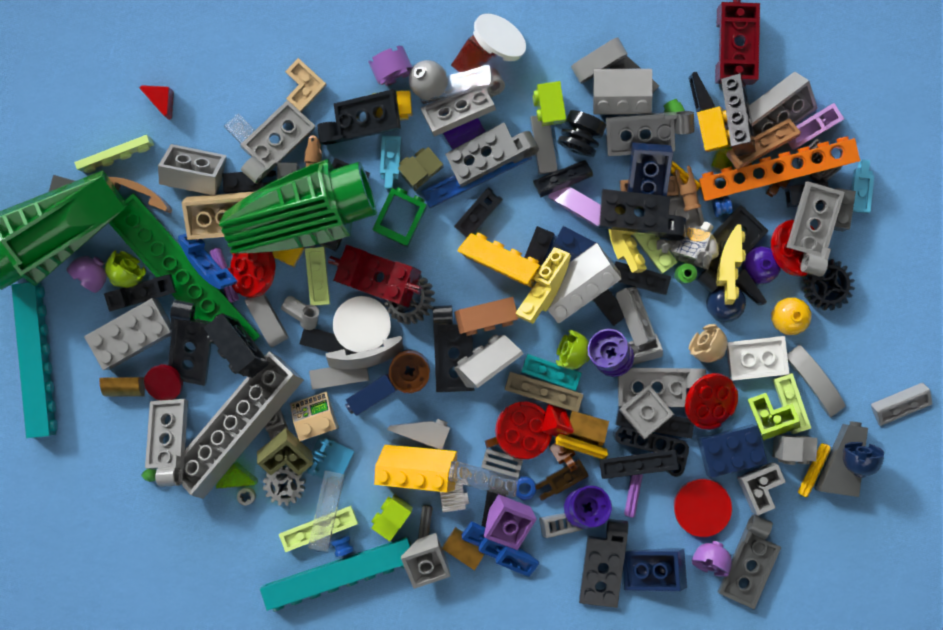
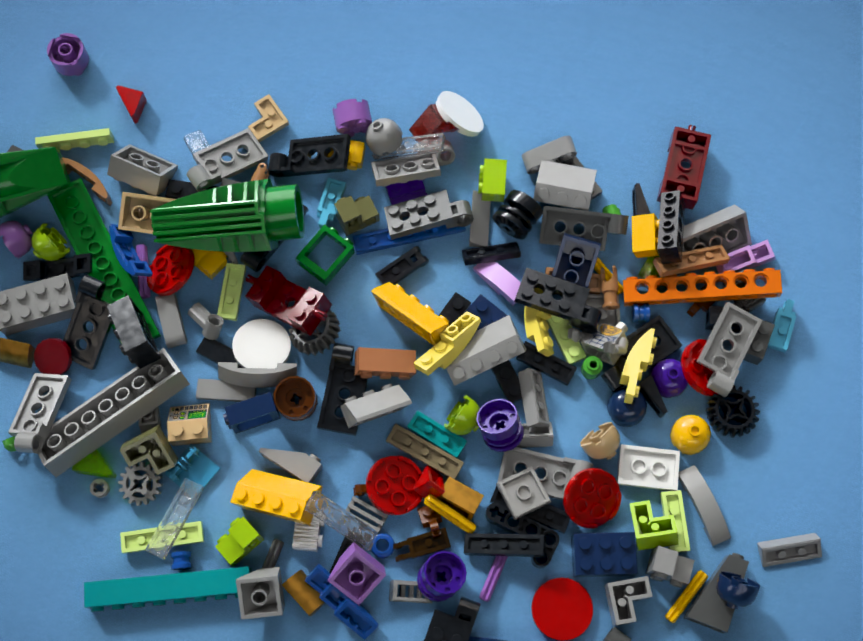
camera: 15 degrees right, 15 degrees down
(87, 58) = (68, 54): none -> medium lavender brick

